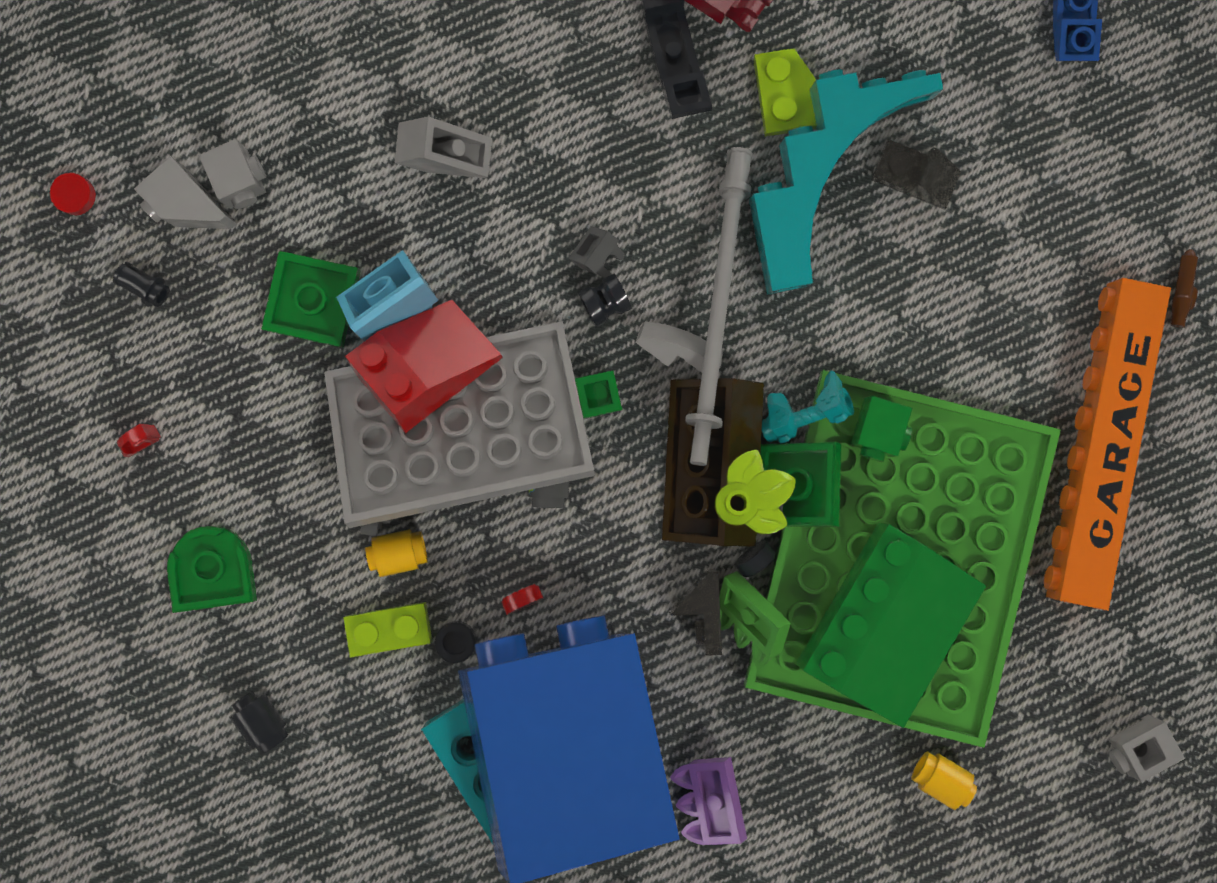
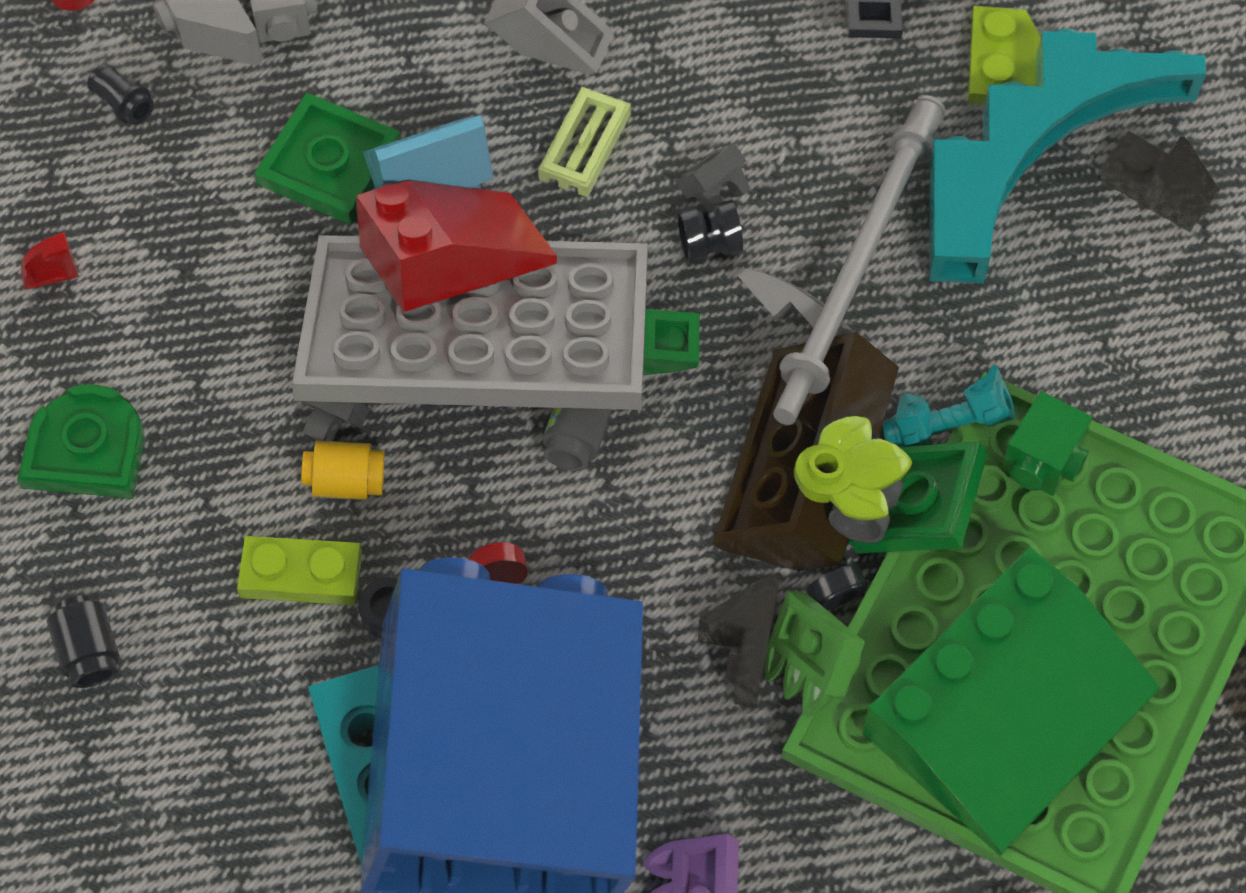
camera: 20 degrees right, 25 degrees down
(489, 273) = (569, 175): none -> yellowish green tile

